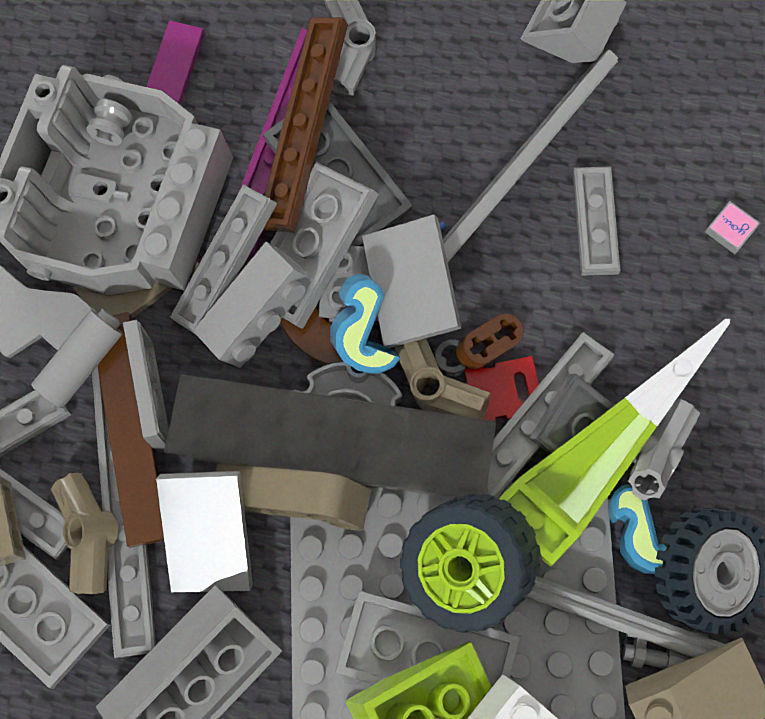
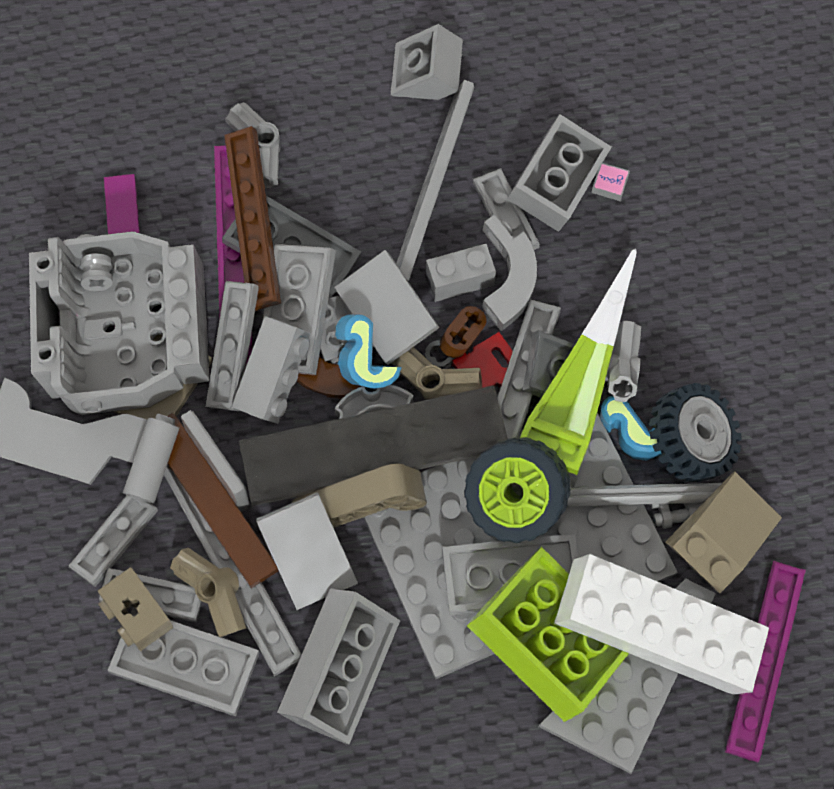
camera: 25 degrees left, 5 degrees down
(515, 271) = (460, 272): none -> light grey brick
(565, 321) = (514, 295): none -> light grey arch
(676, 196) = (559, 173): none -> light grey brick

